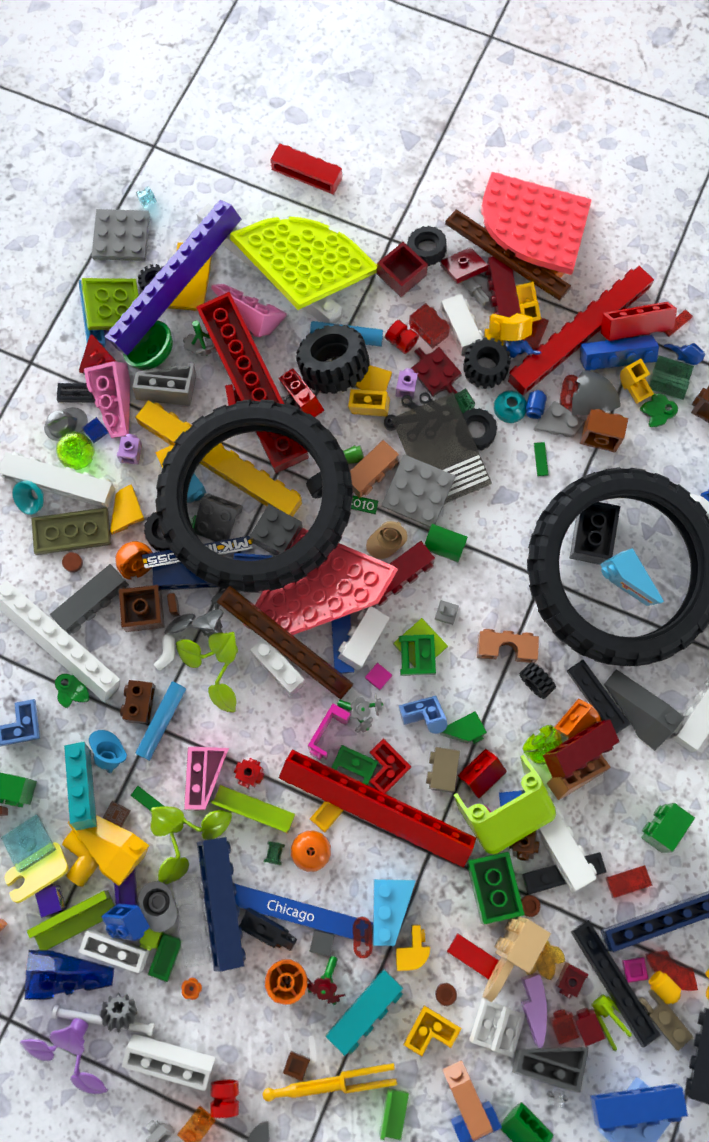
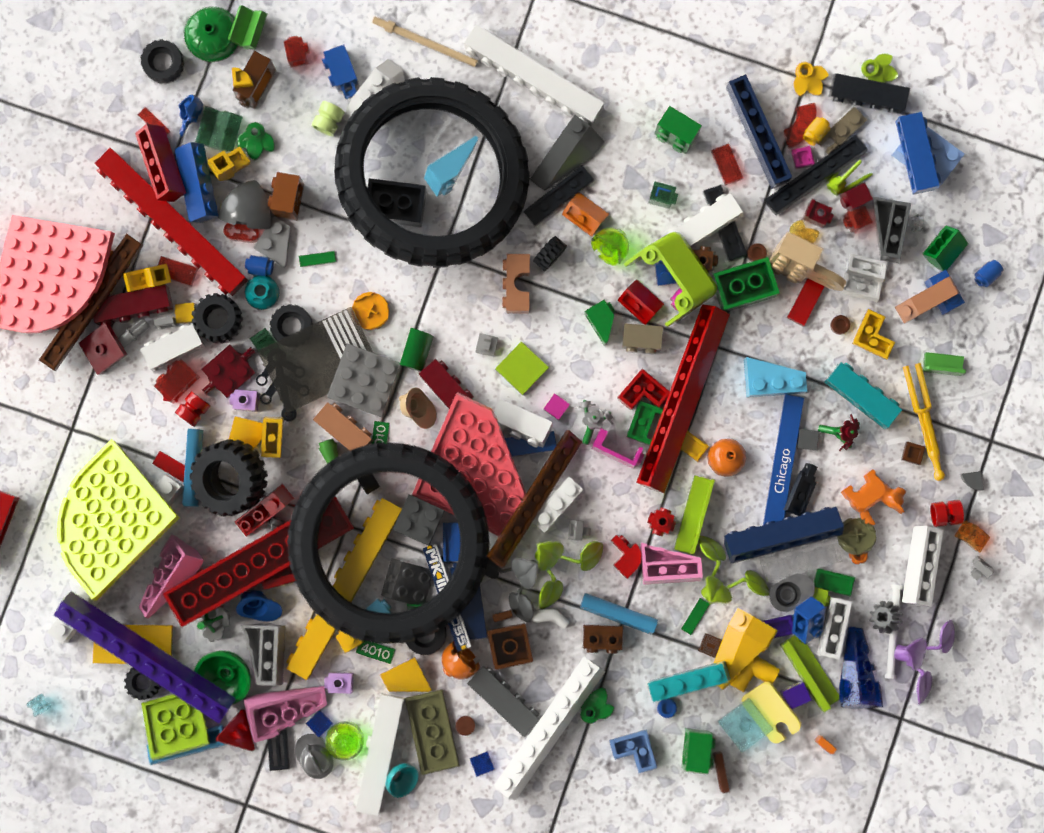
camera: 95 degrees left, 10 degrees up
(33, 575) = (482, 763): none -> clear blue tile
(57, 763) = (667, 708): none -> blue tile
(107, 750) = (651, 661): dark azure piece -> none
(120, 234) = (85, 728): light grey plate -> none
(151, 491) = (376, 651): none -> green sticker
(210, 988) = (857, 536): none -> olive tile
(211, 381) = (257, 606): none -> blue piece
(216, 738) = (631, 557): none -> red brick
(250, 685) = (577, 530): none -> light grey tile
(256, 1011) = (871, 493): none -> orange animal
(274, 853) = (732, 490): clear green bush -> none
(281, 991) = (853, 464): orange cylinder -> none
(352, 315) = (170, 465): none -> red sticker
(357, 937) = (799, 407): clear red beam -> none
(402, 269) = (113, 414): dark red piece -> none
(413, 957) = (811, 355): yellow brick -> none
(424, 655) = (534, 363): green plate -> none
(425, 709) = (586, 356): medium blue brick -> none
(428, 234) = (67, 393): black tyre -> none
(485, 318) = (165, 322): none -> light grey tile
(487, 504) = (371, 310): none -> light orange tile
(512, 328) = (180, 294): yellow brick -> none
(519, 347) = (197, 289): blue piece -> none
(535, 1007) = (845, 244): lavender slope -> none
(564, 787) = (635, 212): nougat slope -> none
(581, 749) = (613, 210): dark red brick -> none
(596, 806) = (663, 195): none -> clear green brick
(681, 475) = (328, 117): none -> yellowish green wheel

